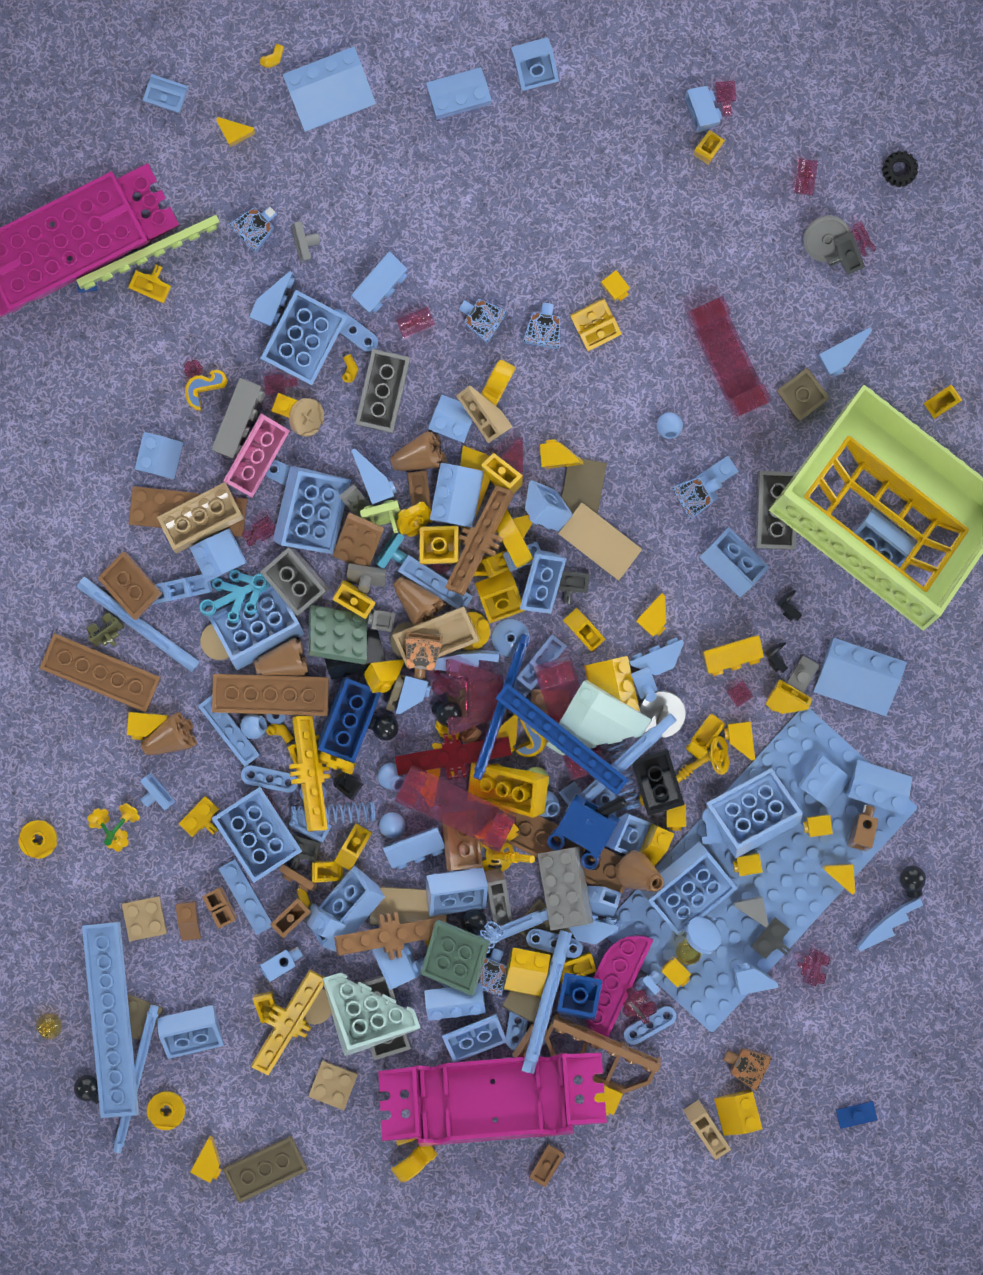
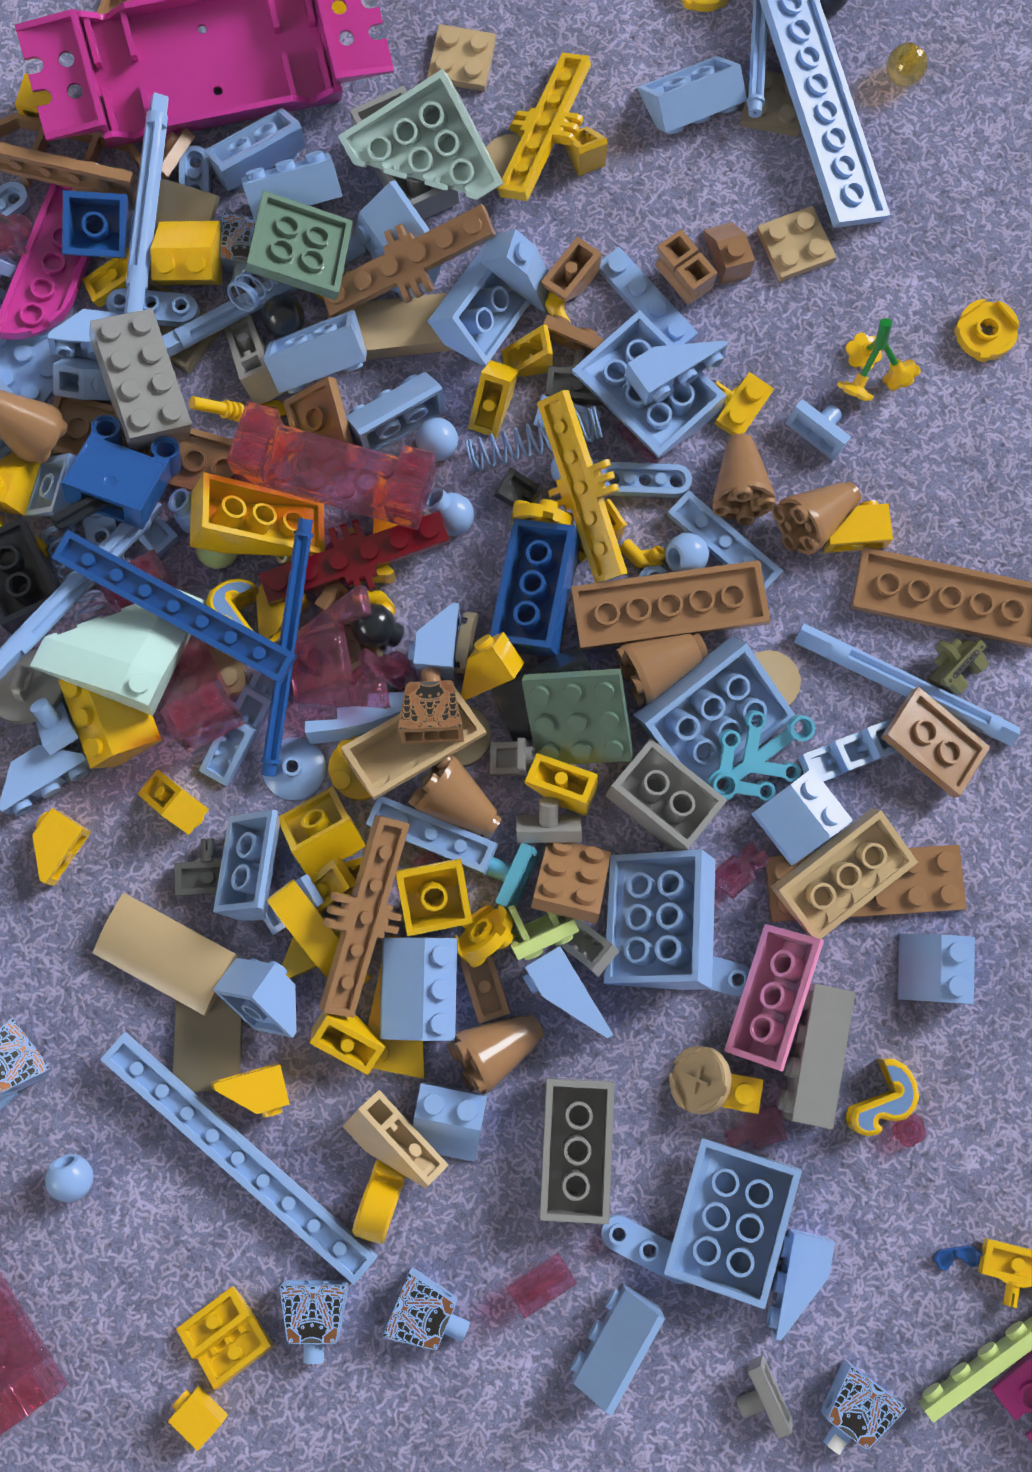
camera: 170 degrees right, 10 degrees down
(187, 297) = (946, 1256): none -> blue piece
(210, 765) = (742, 483): none -> medium nougat cone
(247, 838) = (668, 366): none -> light blue slope
(272, 969) = (577, 204): light blue torso -> none
(352, 369) = (637, 1178): yellow arm -> none
(384, 727) = (475, 589): black piece -> none
(514, 455) = (331, 1077): clear pink slope -> none
(573, 420) = (239, 1158): none -> light blue plate

